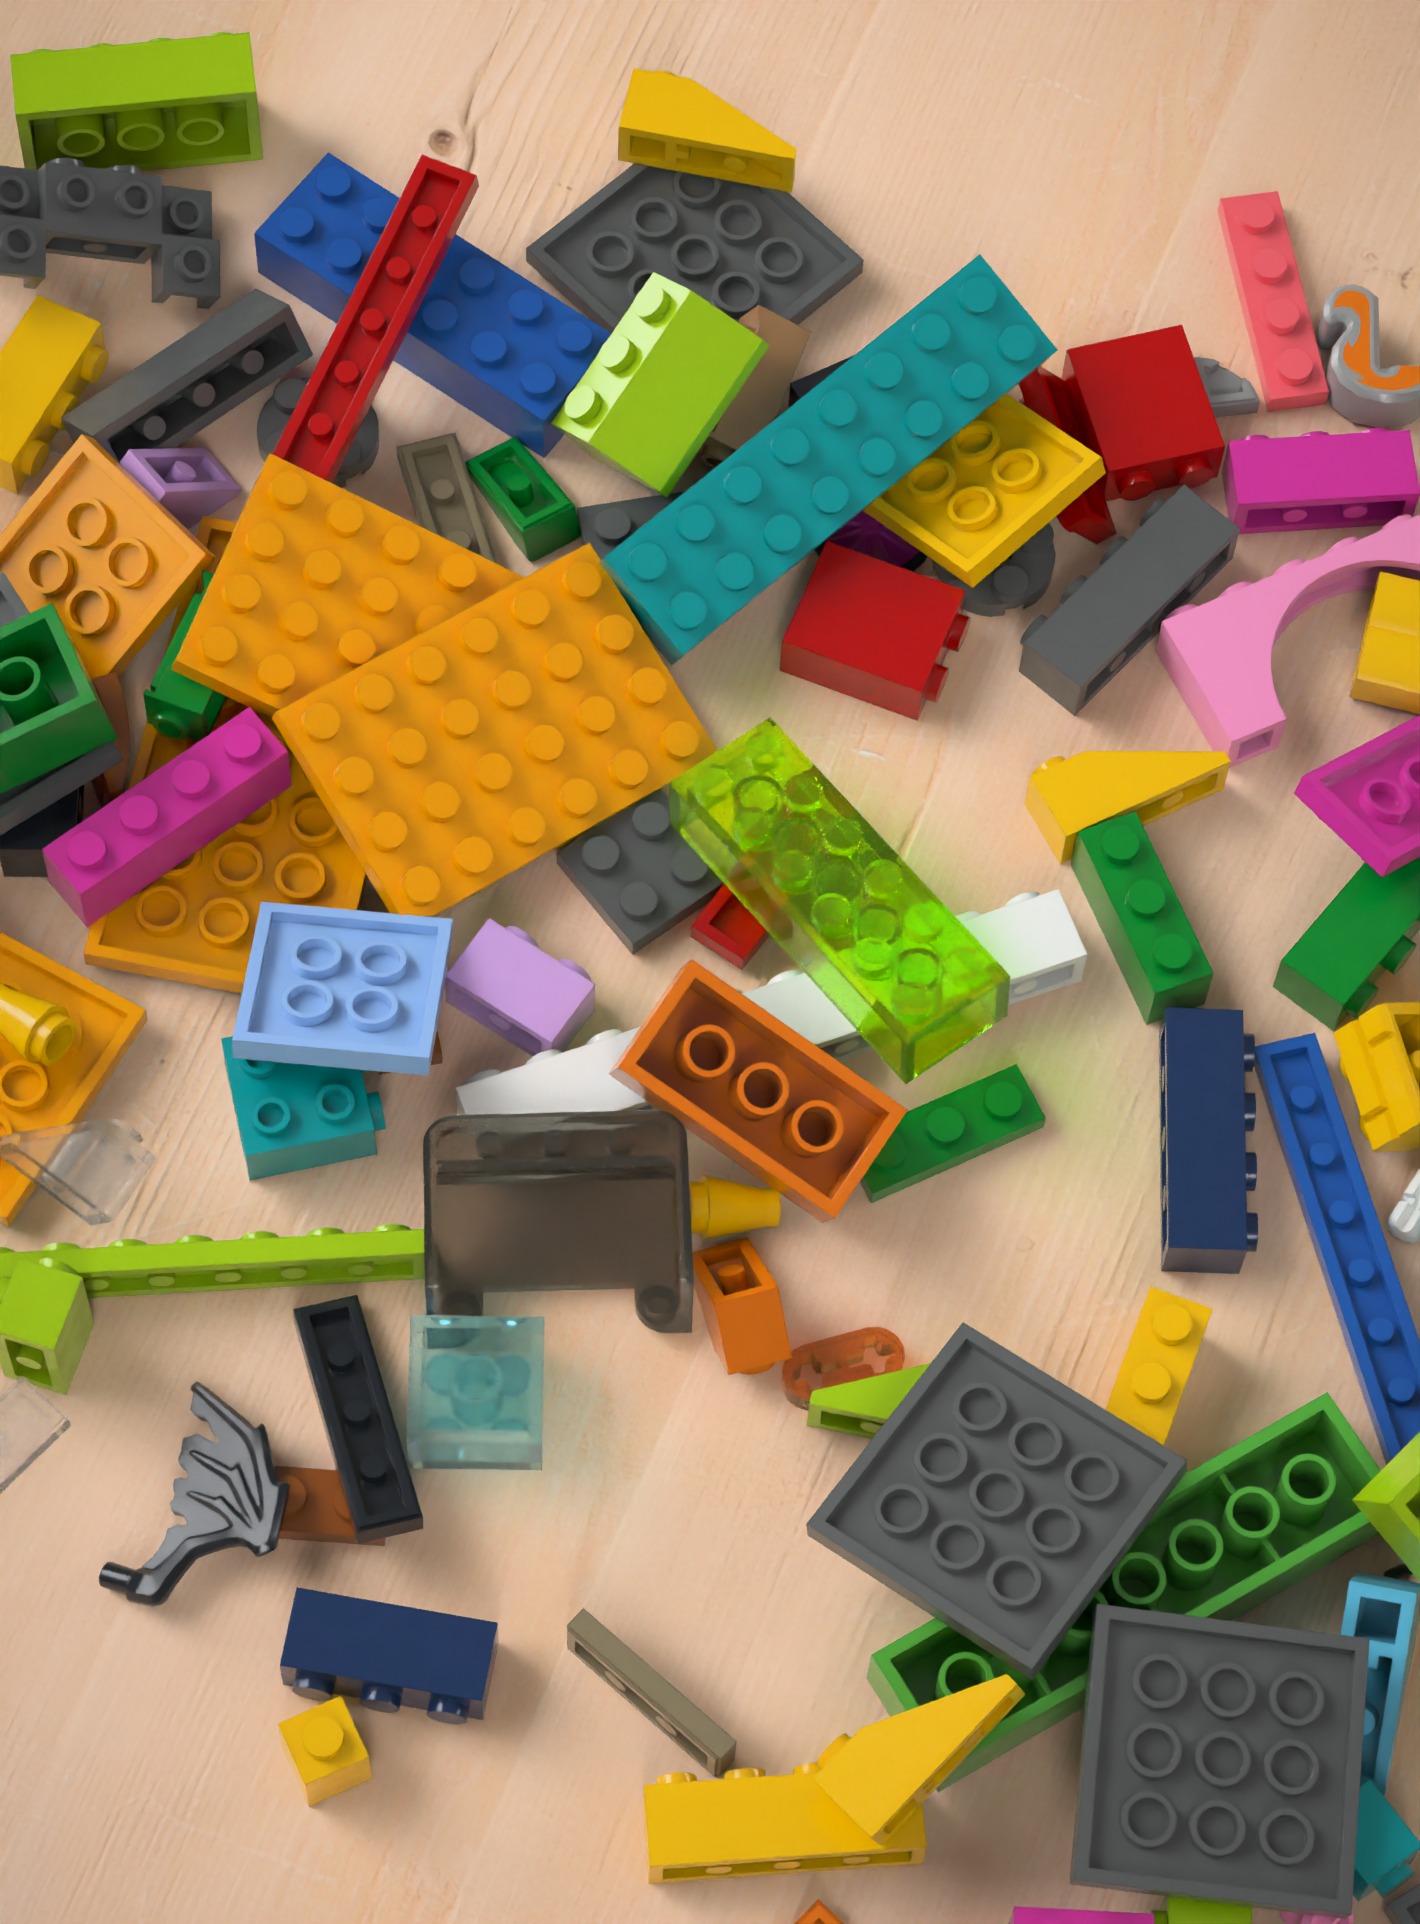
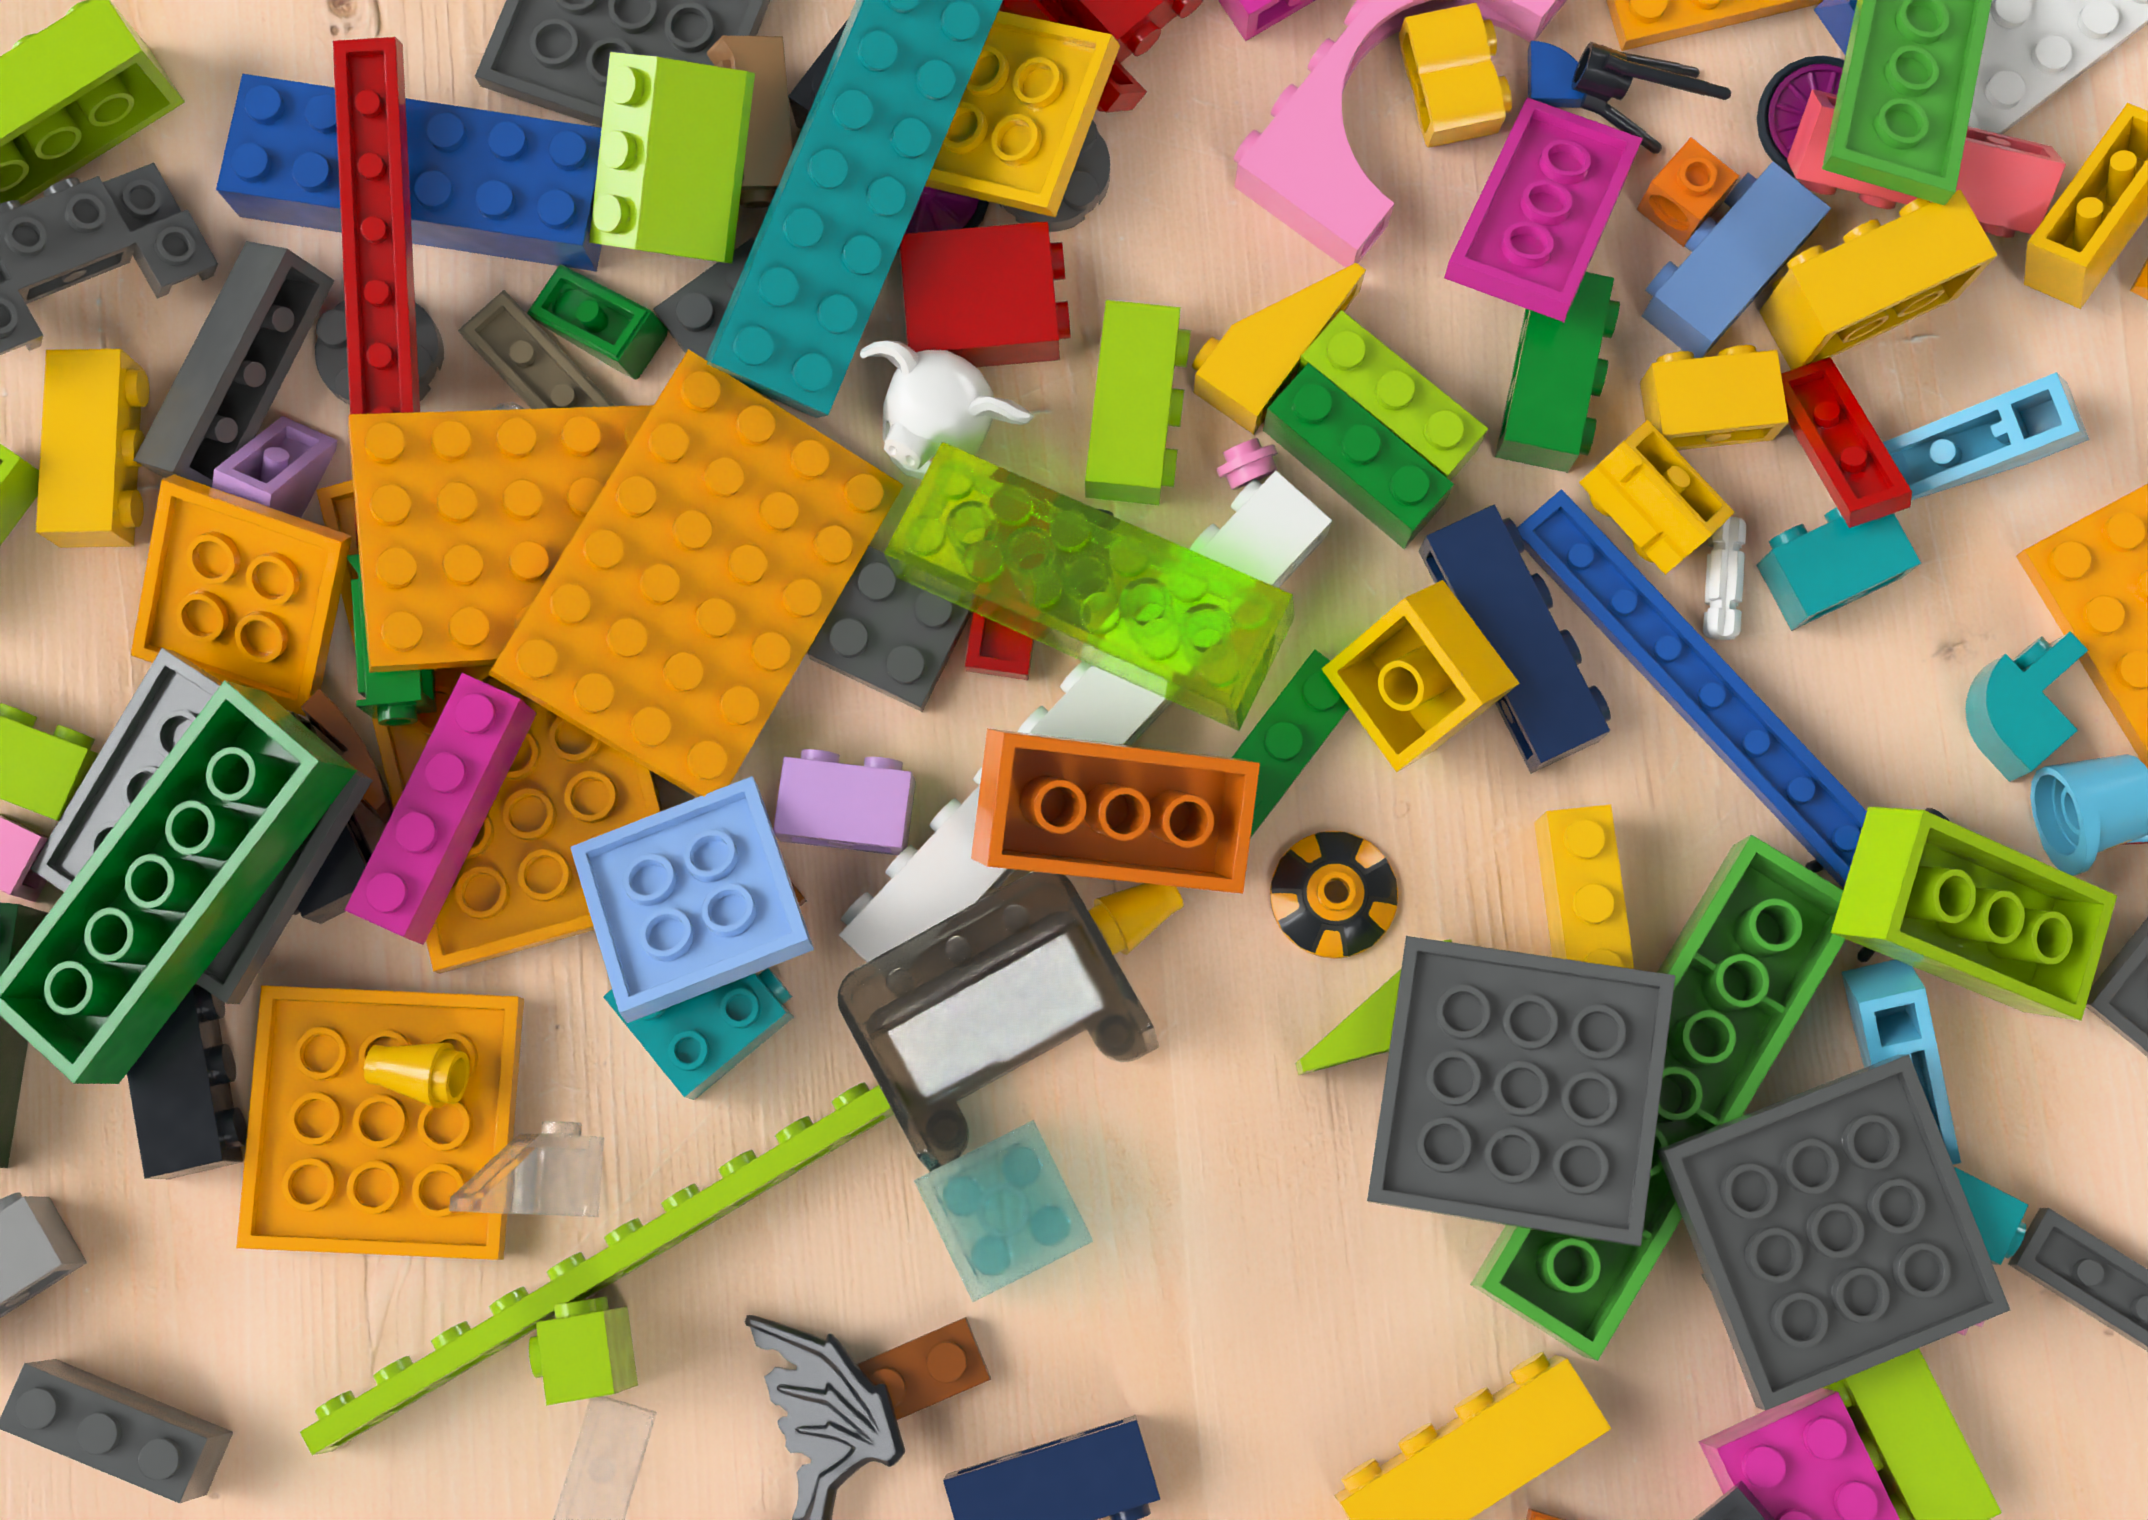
camera: 20 degrees left, 15 degrees up
(357, 1419) = (911, 1286): black tile -> none
(650, 1693) = (1297, 1404): dark tan tile -> none
(741, 1307) = (1190, 1002): orange slope -> none
(789, 686) = (936, 401): none -> white piece
(839, 1353) = (1295, 999): clear orange beam -> none
(903, 1759) = (1564, 1376): yellow slope -> none
(916, 1312) = (1325, 926): none -> dish
(964, 781) = (1136, 403): none -> lime brick
(1039, 875) = (1247, 462): none -> bright pink plate
(1096, 1119) = (1419, 675): none -> yellow brick
(1127, 598) = (1191, 151): dark grey brick -> none
(1204, 884) = (1396, 394): none -> lime brick

